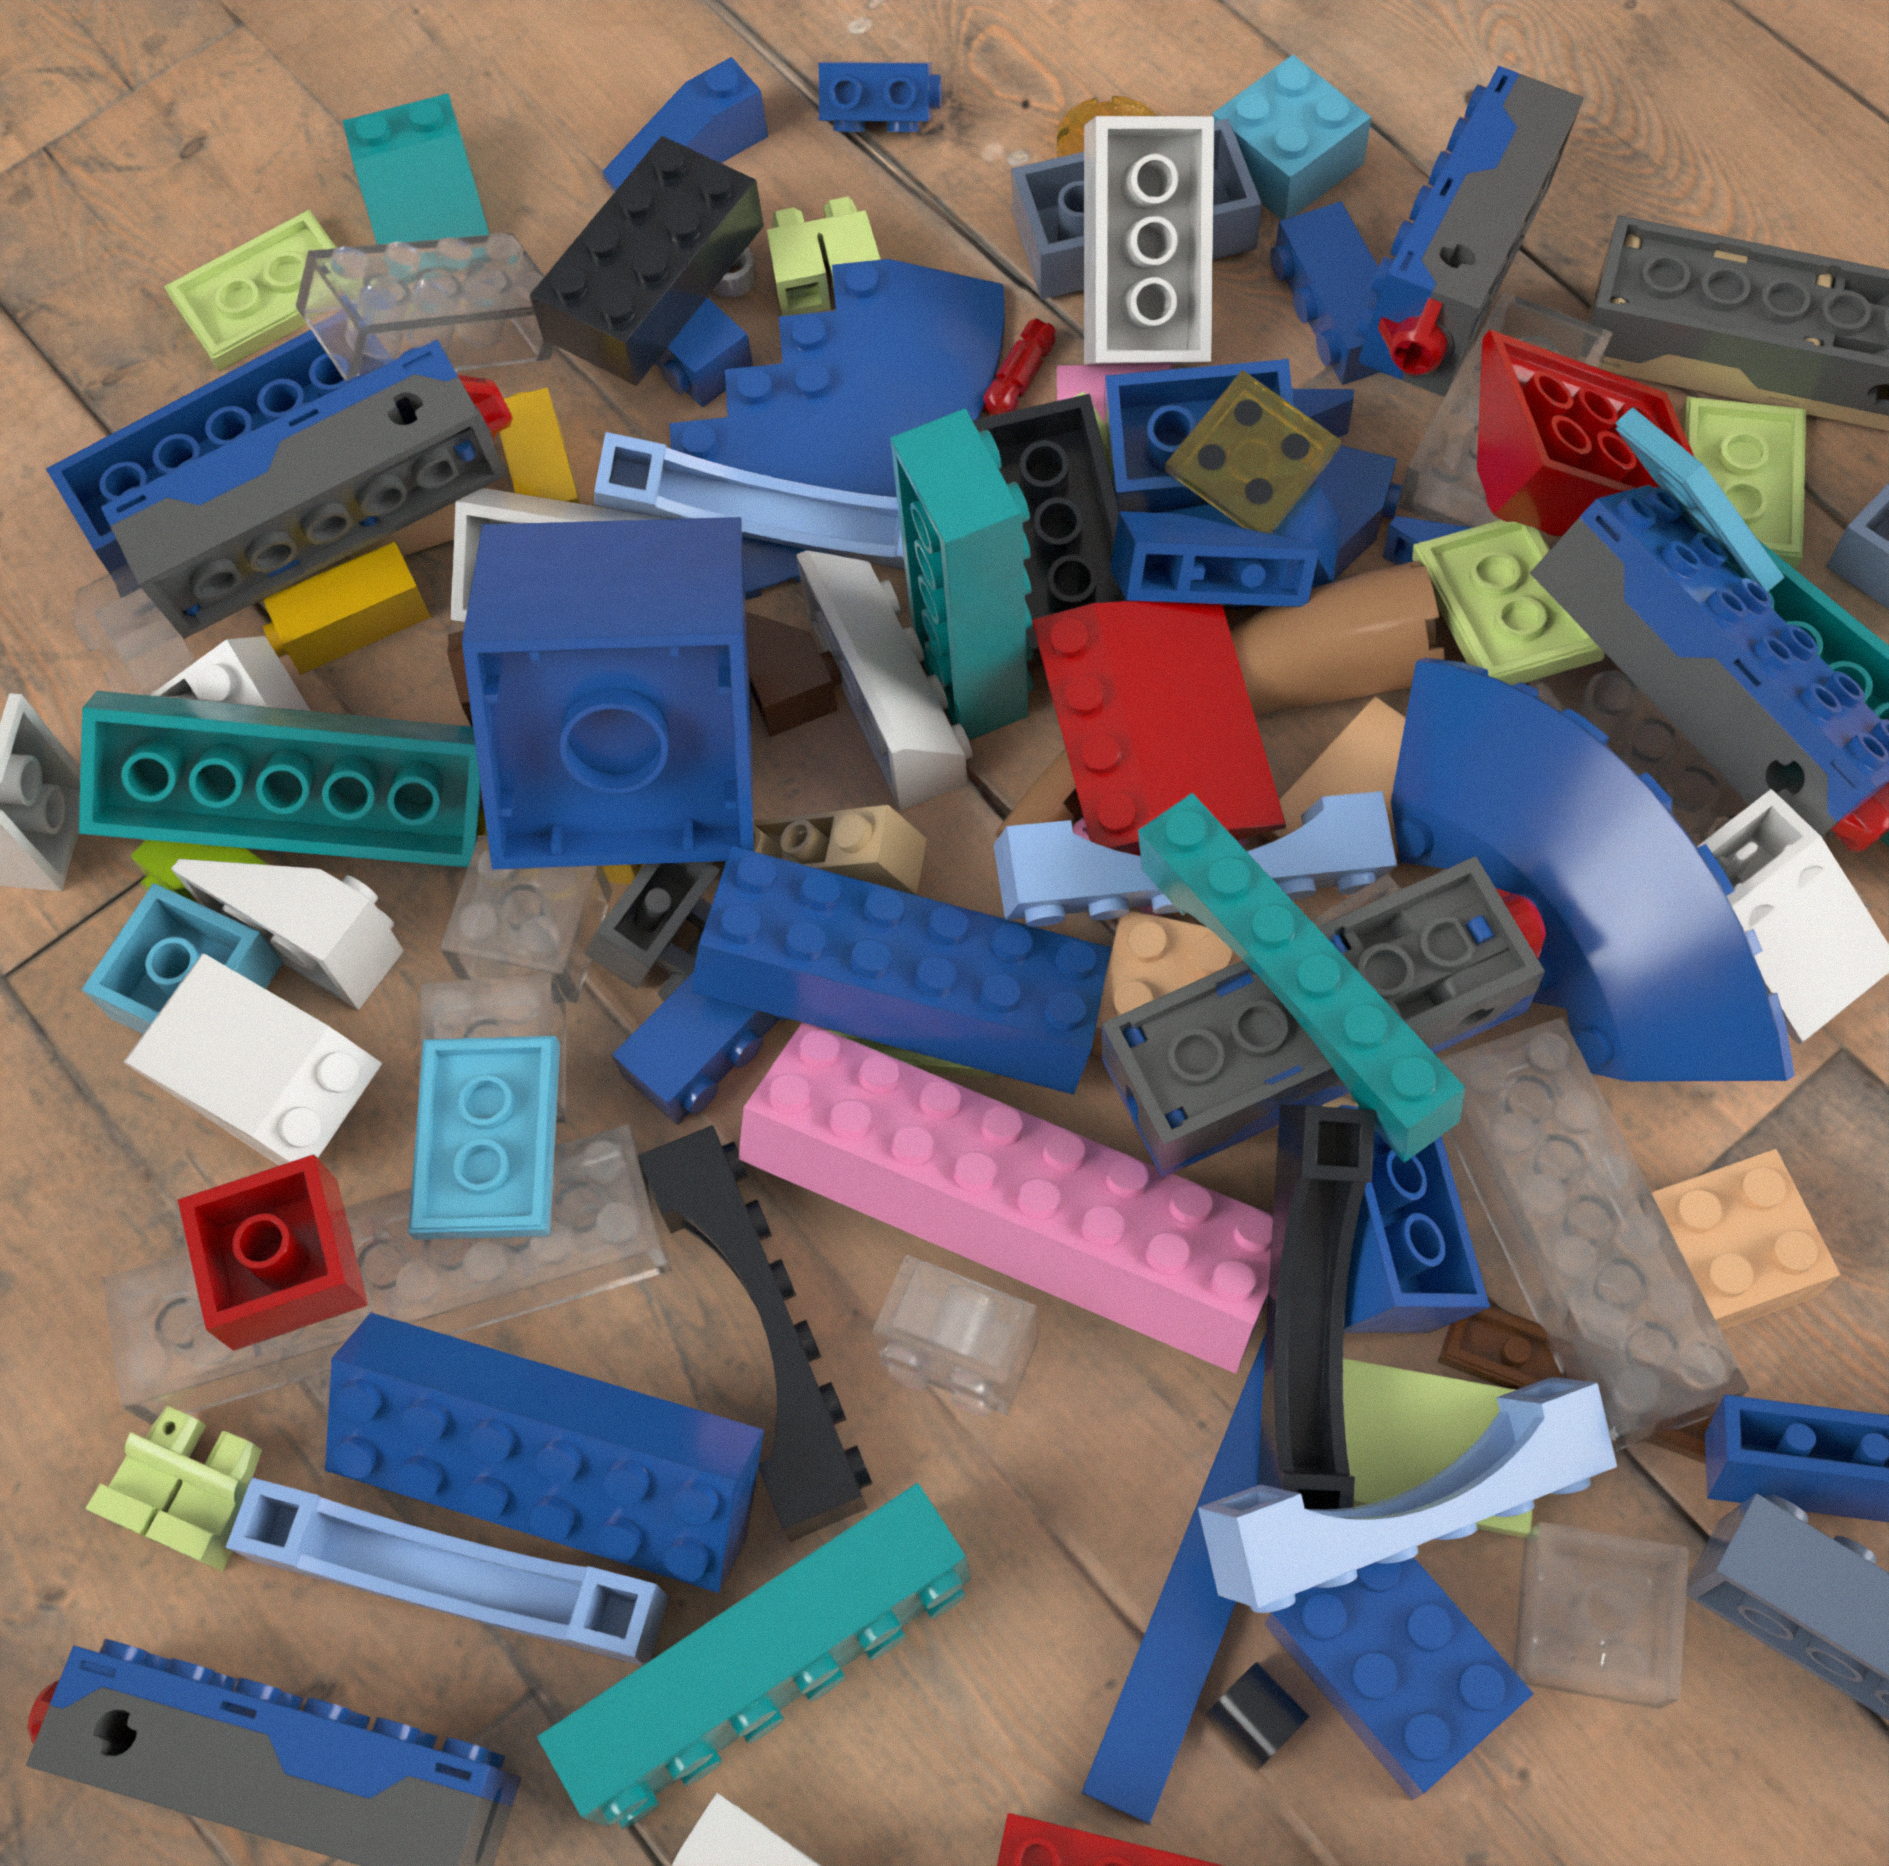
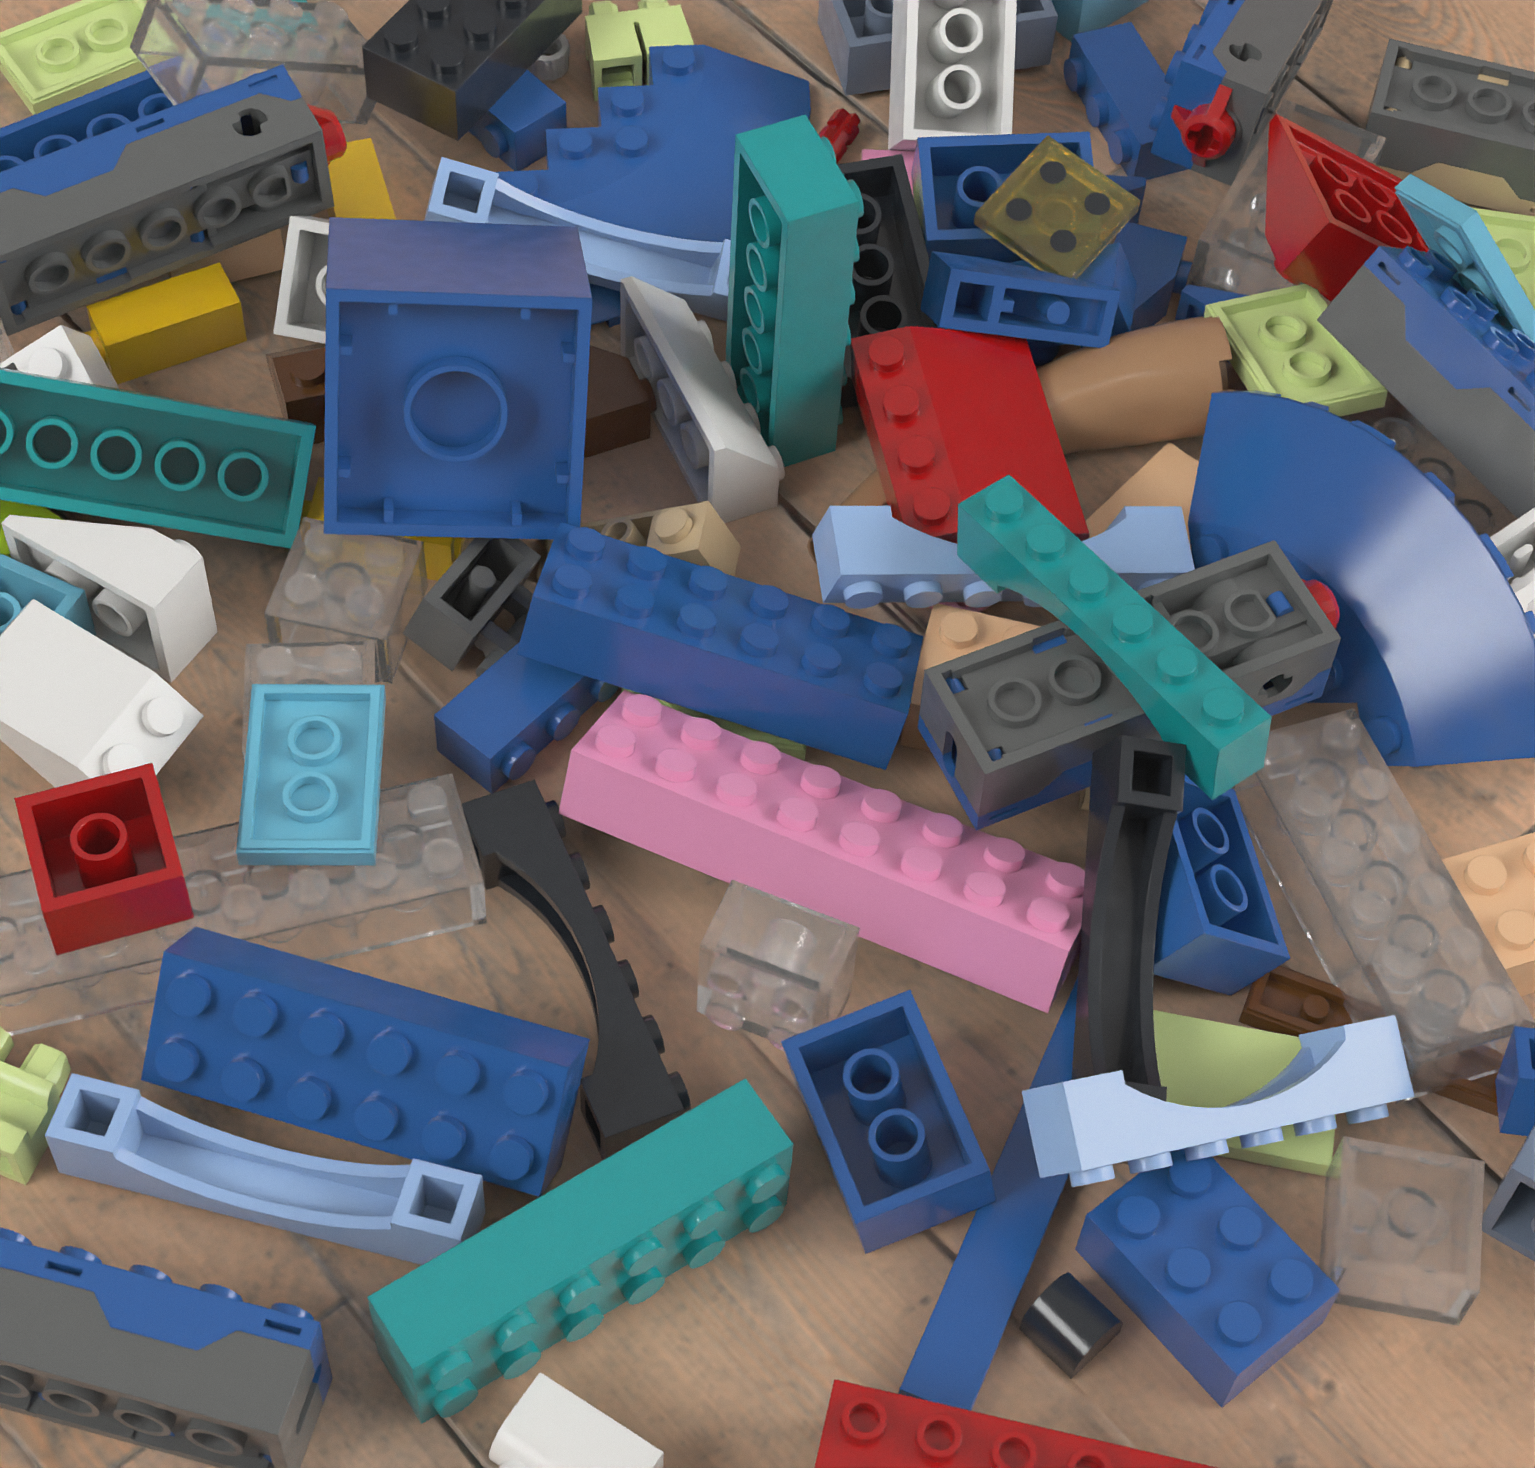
camera: 10 degrees left, 10 degrees down
(1069, 1504) = (889, 1121): none -> blue brick

